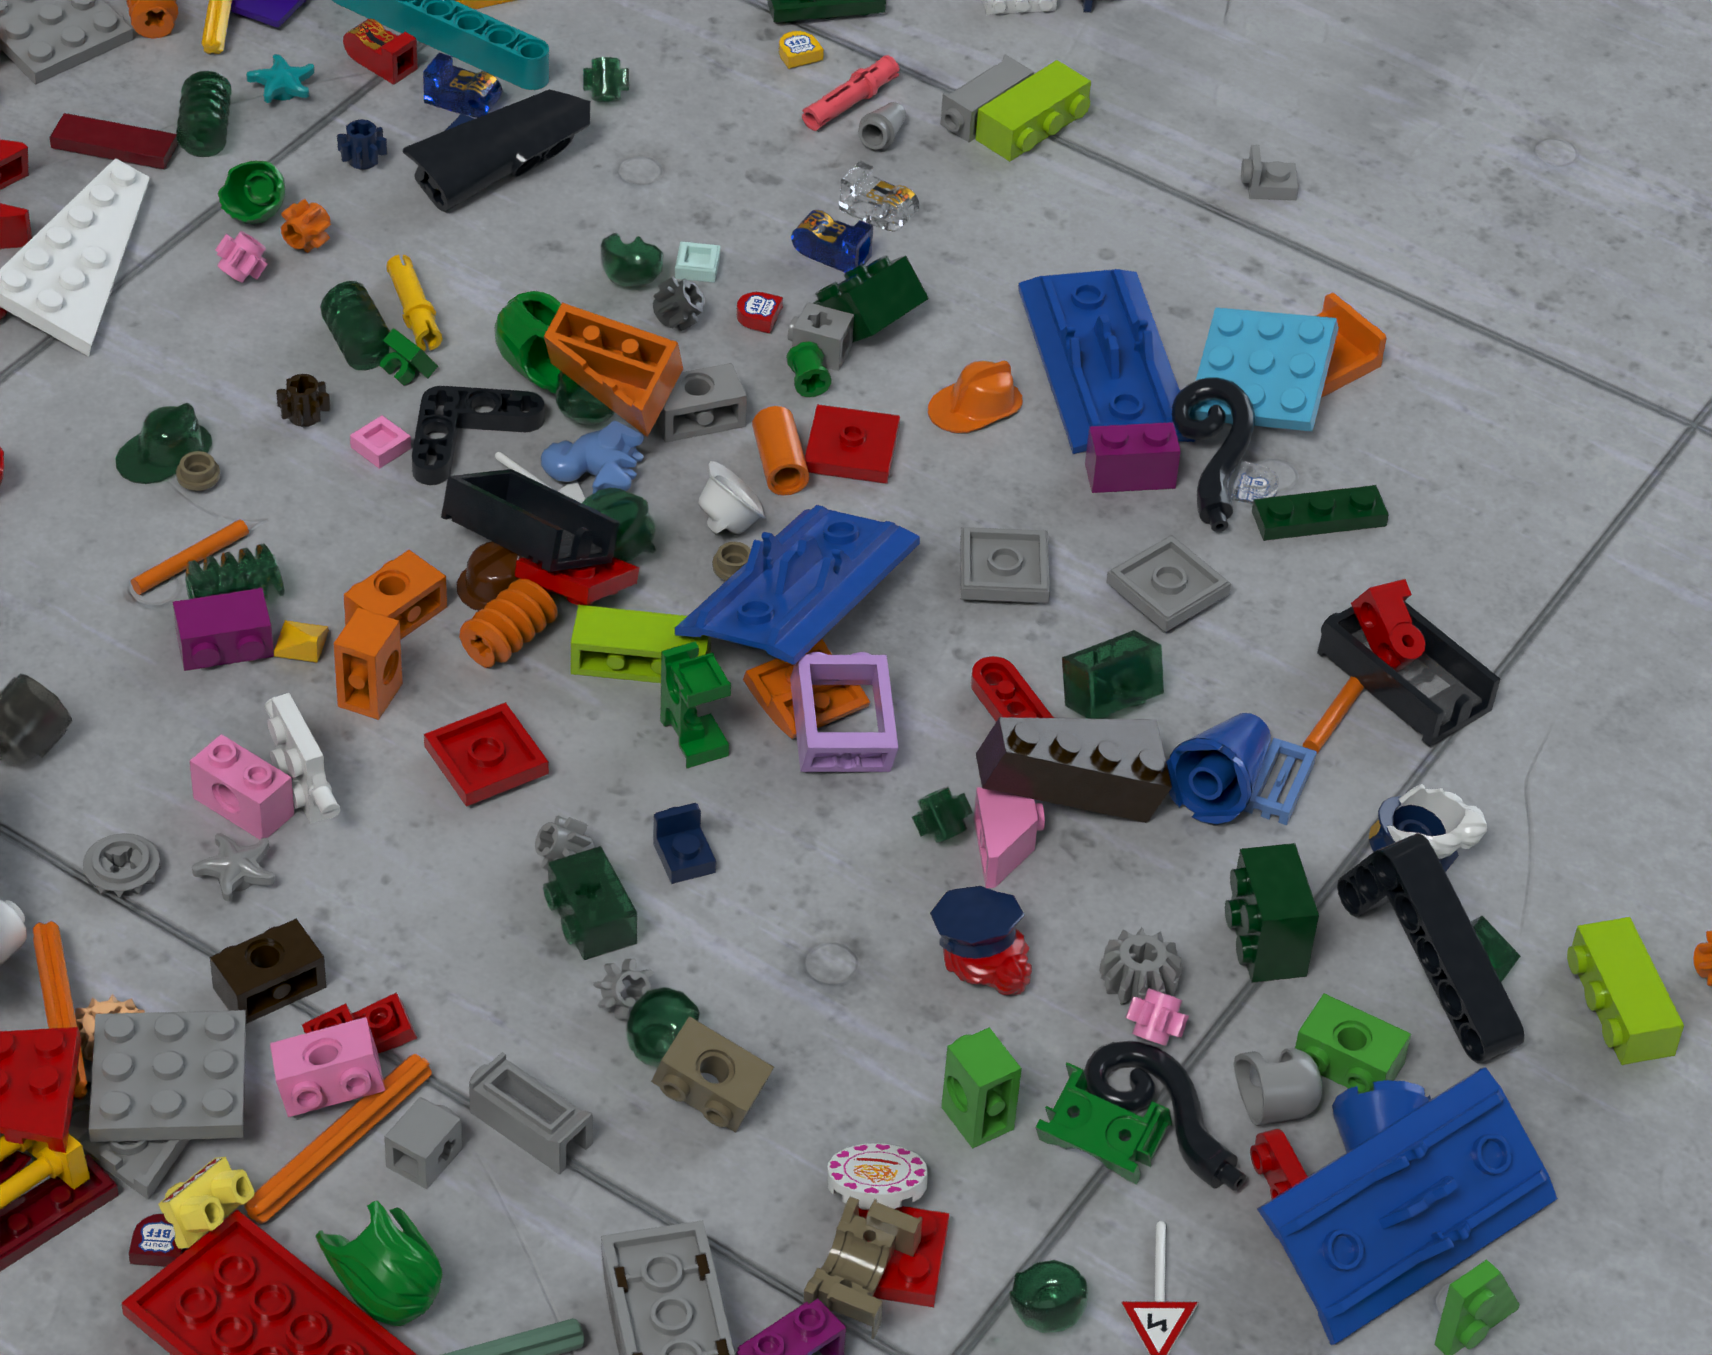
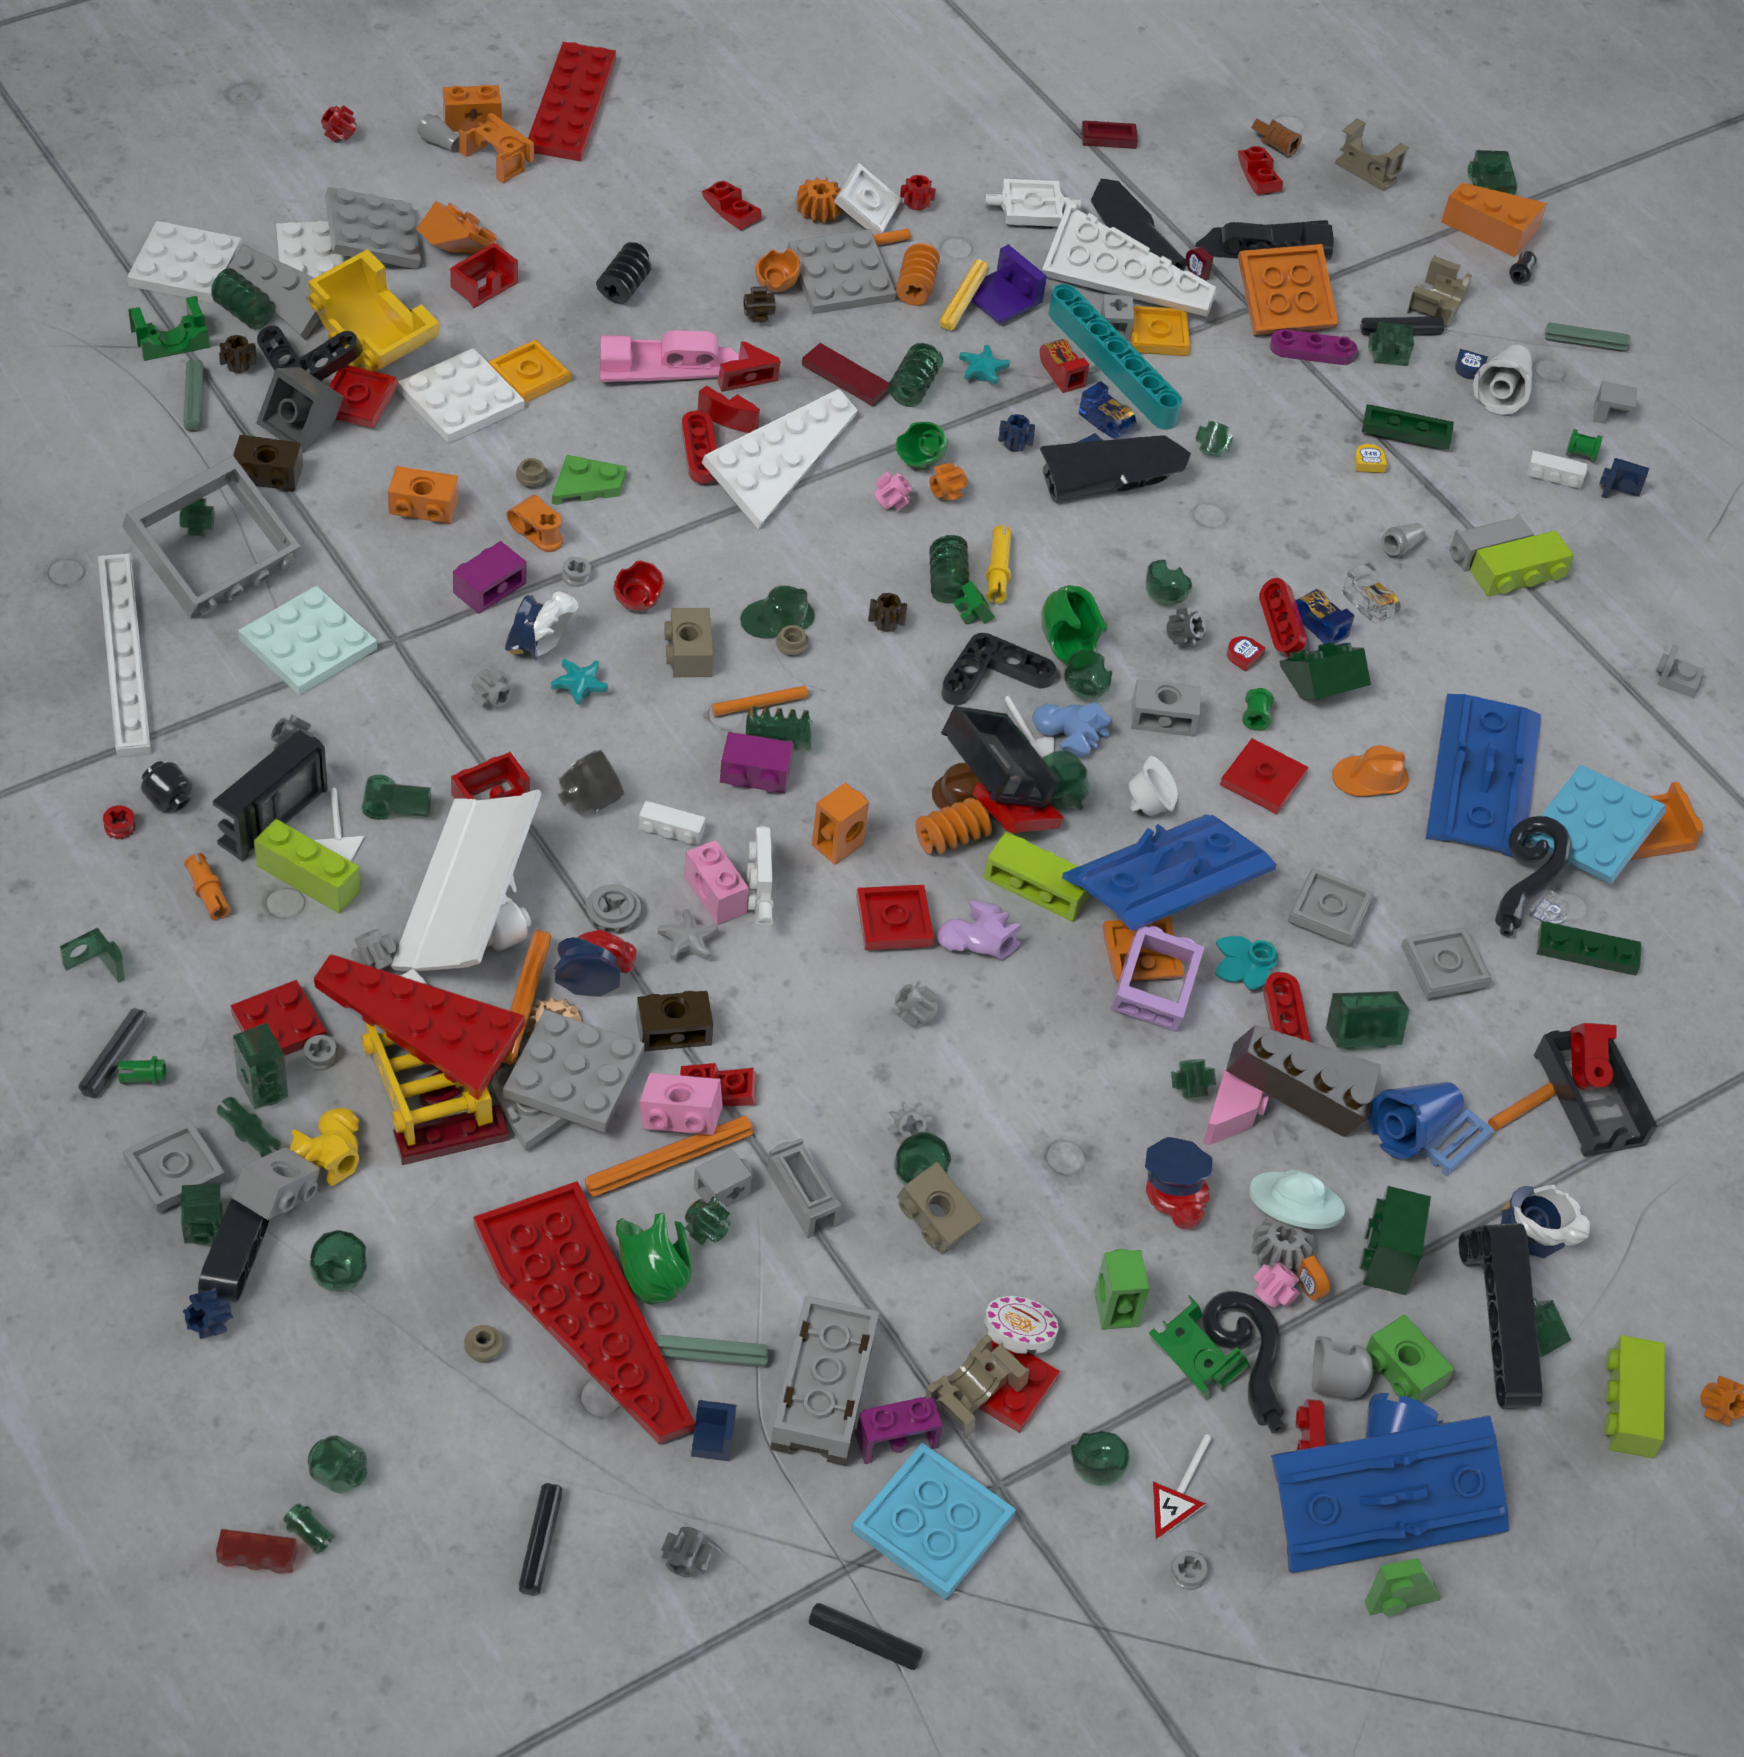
camera: 20 degrees right, 5 degrees up
(69, 514) = (690, 642): none -> dark tan brick
(131, 937) = (593, 963): none -> dark blue piece
(148, 737) = (671, 823): none -> white piece
(154, 1242) = (518, 1182): tile -> none
(205, 1200) = (557, 1167): light yellow hips -> none
(301, 641) = (807, 789): yellow slope -> none
(380, 441) = (929, 660): bright pink tile -> none
(401, 590) = (886, 780): orange brick -> none
(428, 1196) = (707, 1221): none -> clear green gear
(591, 903) = (916, 1052): clear green brick -> none
(608, 735) = (985, 936): none -> lavender animal
(615, 363) = (1112, 661): orange wedge -> none
(682, 843) = (1001, 1032): dark blue bracket -> none
(686, 684) = (1052, 921): green piece -> none
(697, 262) = (1217, 599): light aqua tile -> none
(730, 559) = (1132, 833): dark tan plate -> none
(780, 450) = (1207, 764): orange pin -> none
(801, 274) = (1282, 616): none -> red plate
(828, 329) = (1284, 684): light grey brick -> none
(861, 85) = (1402, 502): coral pin -> none
(935, 660) = (1245, 962): none -> teal plate
(1132, 457) = (1464, 858): magenta brick -> none
(1133, 908) = (1297, 1199): none -> light aqua hat
(1198, 993) = (1313, 1278): none -> orange tile

